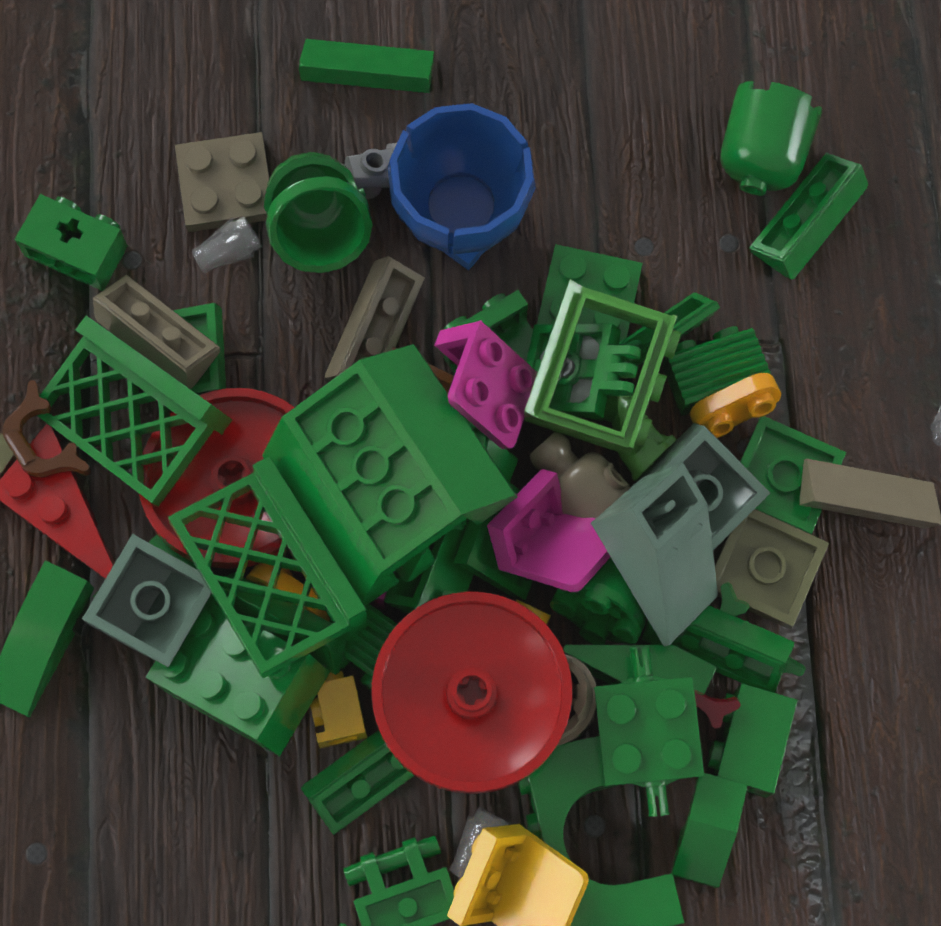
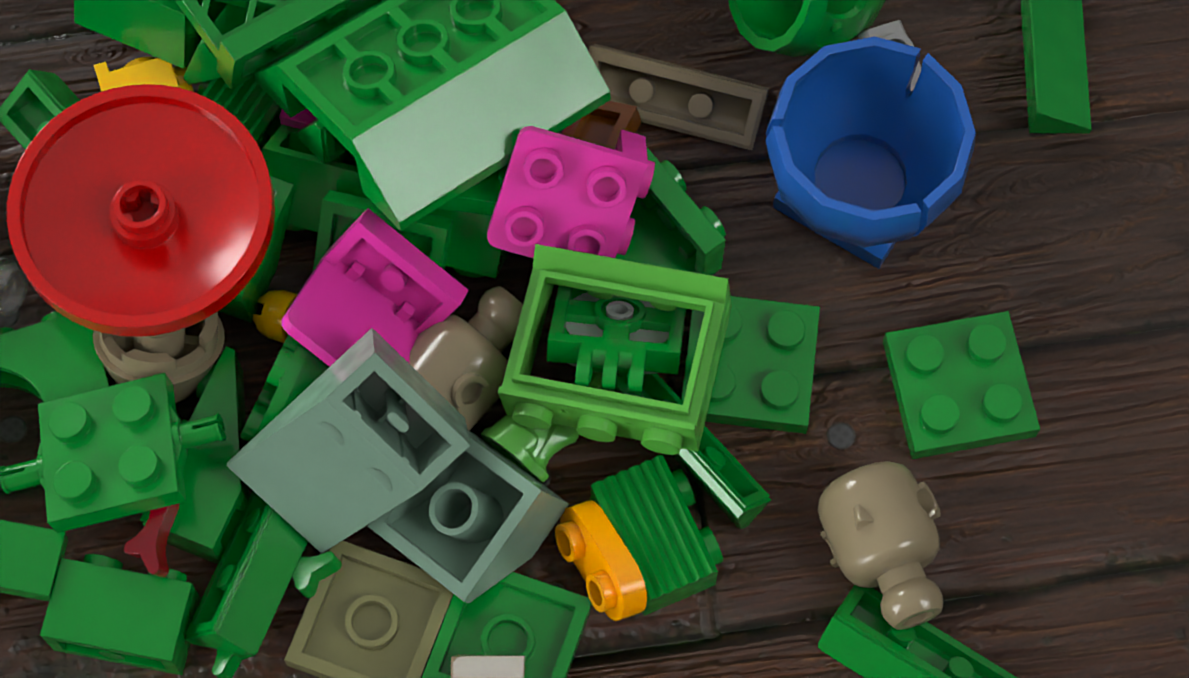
camera: 85 degrees right, 5 degrees down
(617, 163) = (960, 385): none -> green plate
(730, 221) = (885, 537): none -> dark tan piece
(768, 137) = (1018, 577): green cylinder -> none

